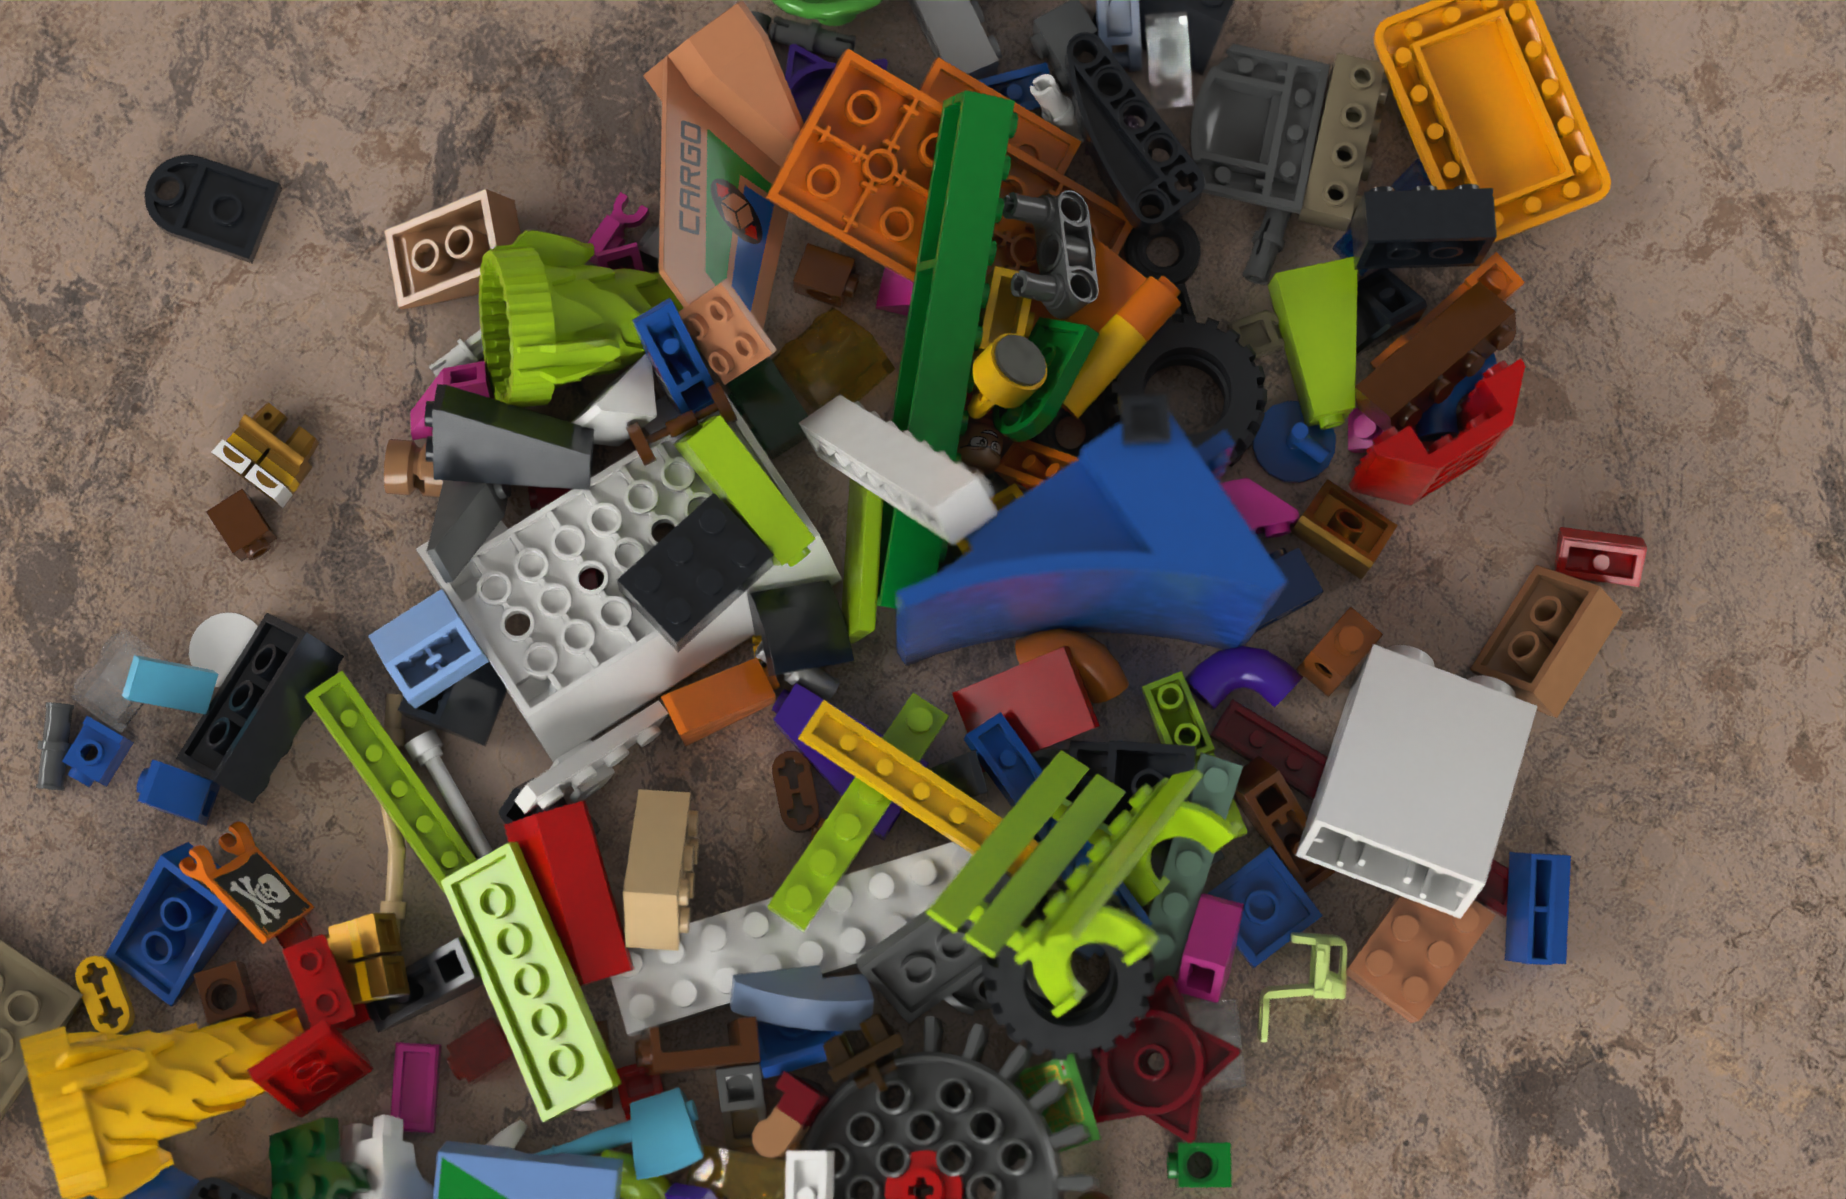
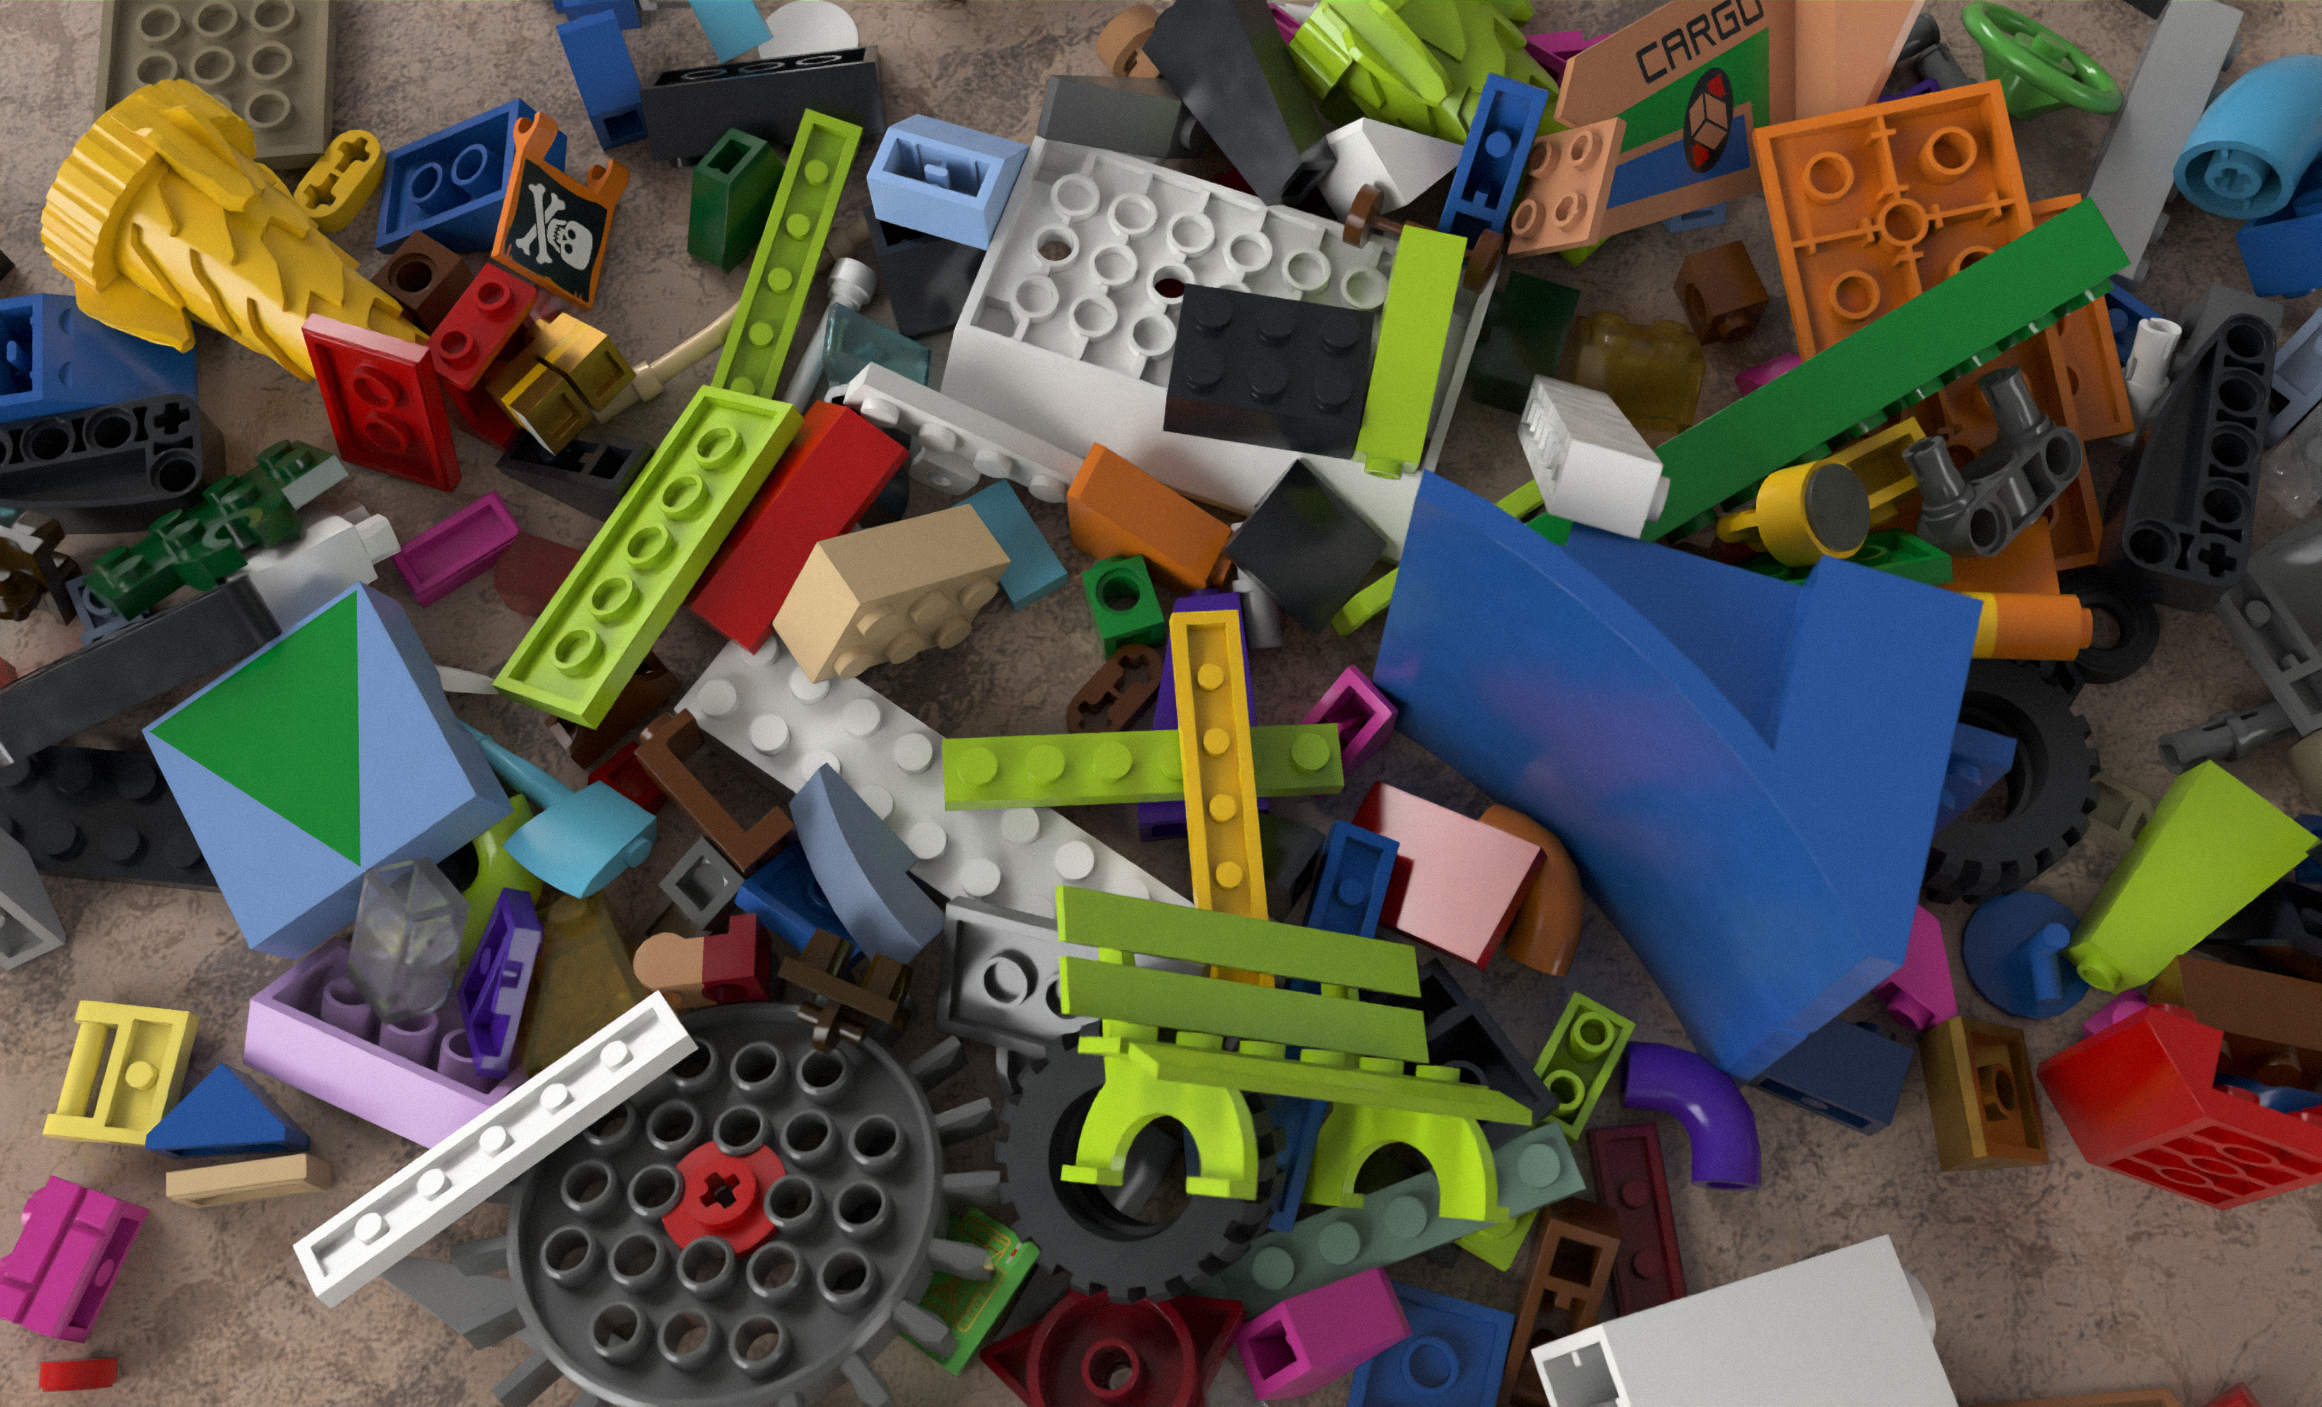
camera: 55 degrees right, 10 degrees down
(320, 777) = (732, 199): none -> dark green slope
(490, 770) = (856, 341): none -> clear light blue slope
(659, 774) = (1033, 564): none -> medium azure tile
(762, 761) = (1115, 628): none -> green brick
(910, 676) = (1362, 717): none -> dark pink slope
(1145, 420) = (1938, 600): black tile -> none
(1339, 651) = (1837, 1207): dark orange torso -> none

